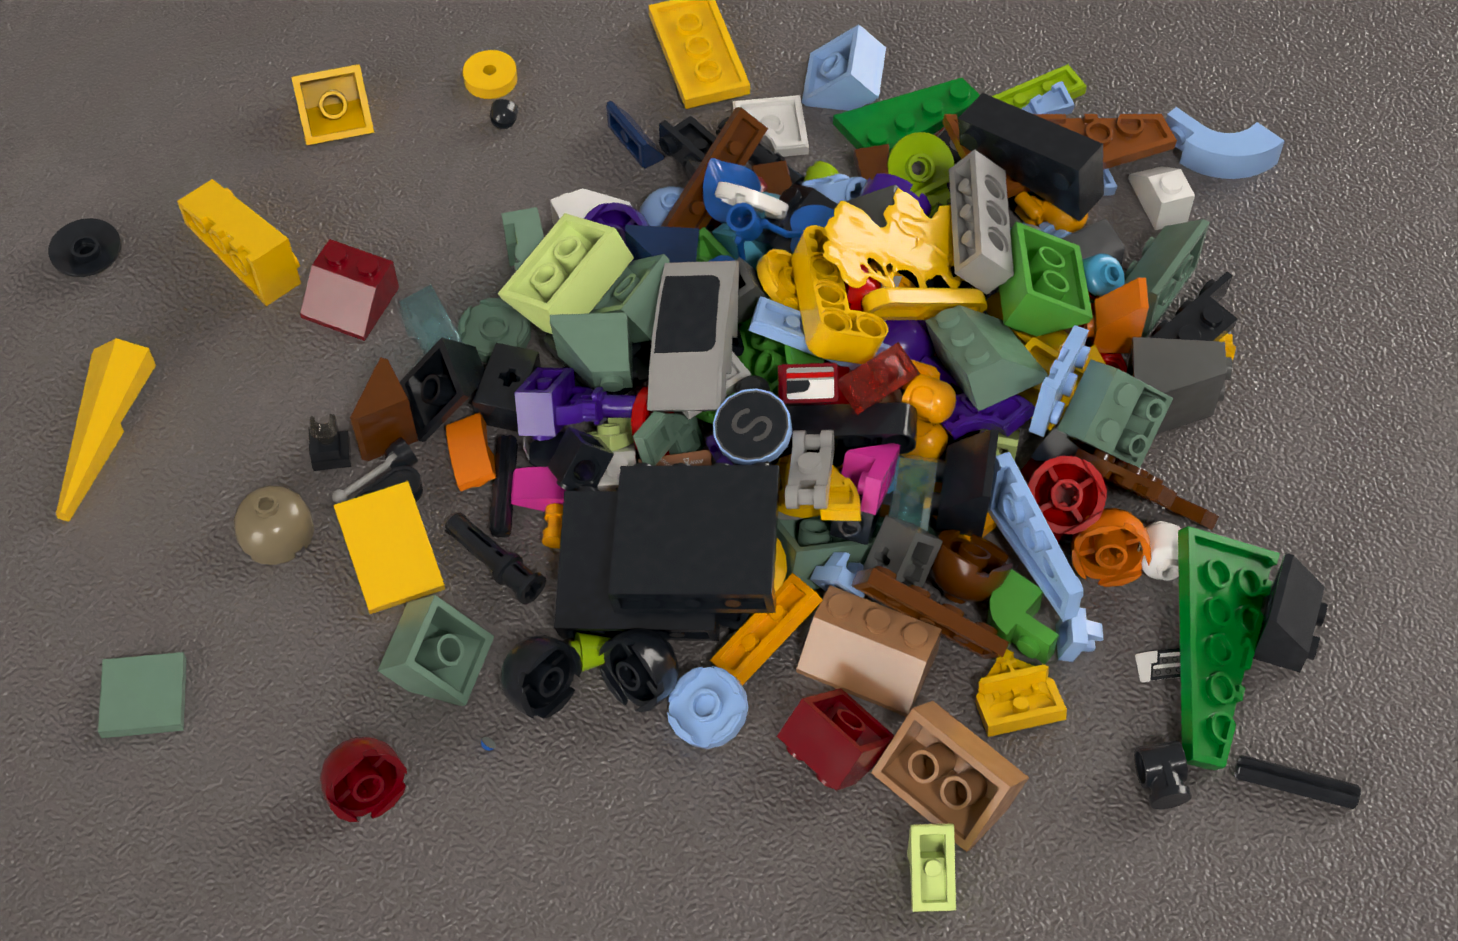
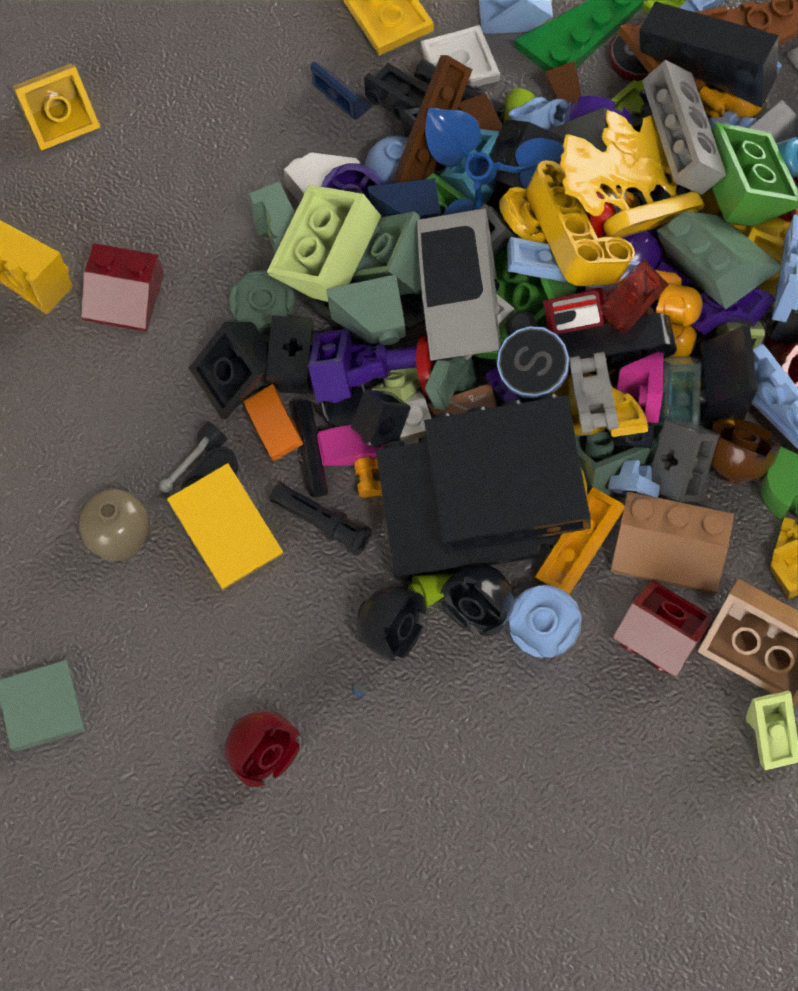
camera: 10 degrees left, 10 degrees up
(328, 445) = (144, 440): black piece -> none
(382, 413) = (189, 402): reddish brown slope -> none
(426, 318) = (204, 306): clear light blue slope -> none
(436, 651) = (293, 616): sand green slope -> none
(493, 86) = (192, 40): yellow piece -> none
(503, 113) = (215, 89): black hinge -> none
(735, 194) = (476, 144): white tile -> none
(916, 602) = (709, 495): reddish brown plate -> none
(924, 149) = (614, 66): lime dish -> none

